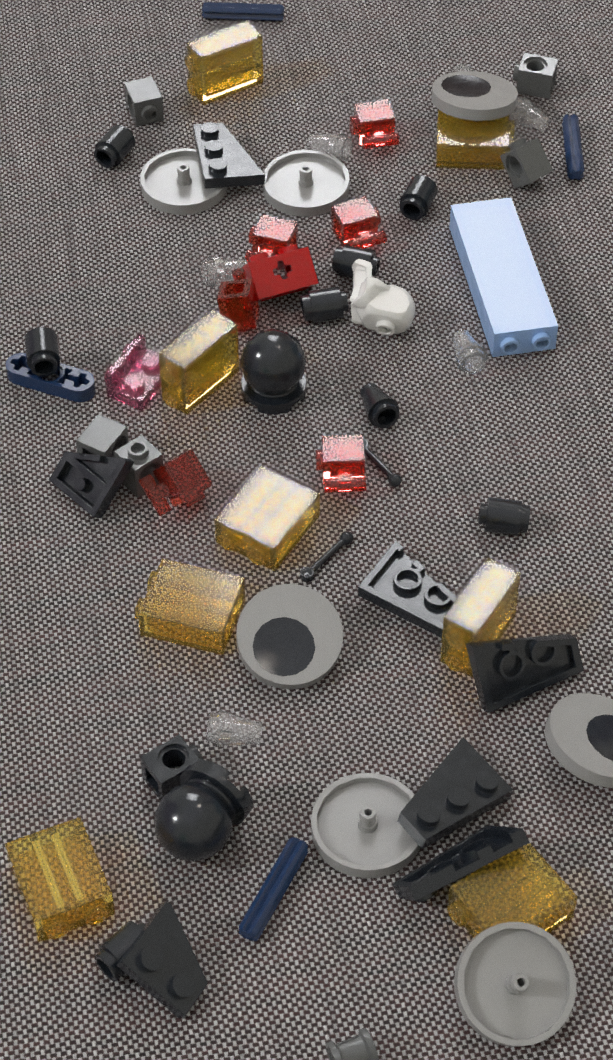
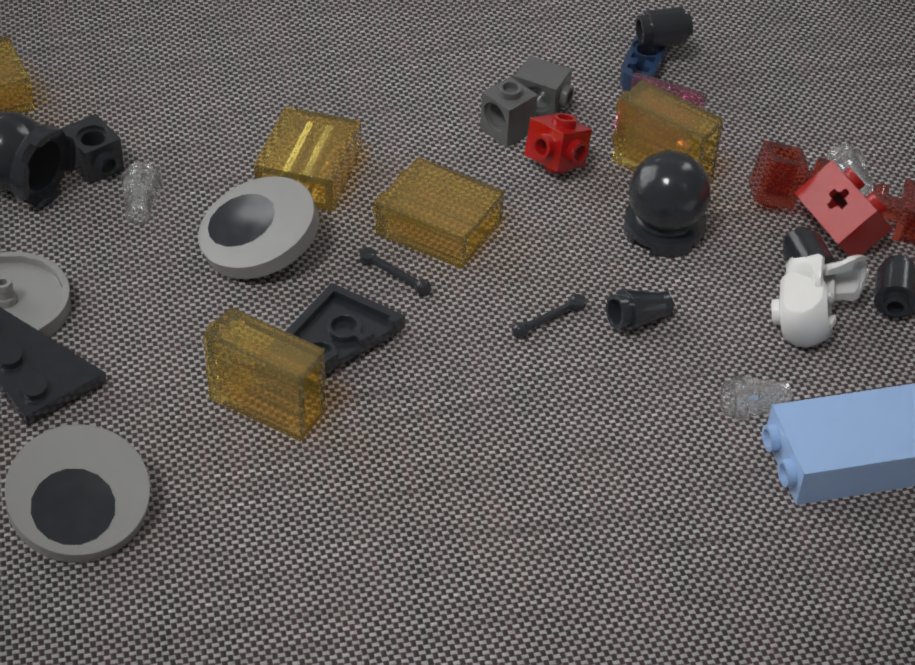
camera: 85 degrees right, 5 degrees down
(90, 479) = (488, 75): black wing -> none
(179, 480) = (482, 136): clear red brick -> none
(188, 431) = (558, 142): none -> red brick
(342, 463) = (535, 274): clear red brick -> none
(504, 516) = (454, 422): black brick -> none
(521, 666) = (194, 418): black wing -> none

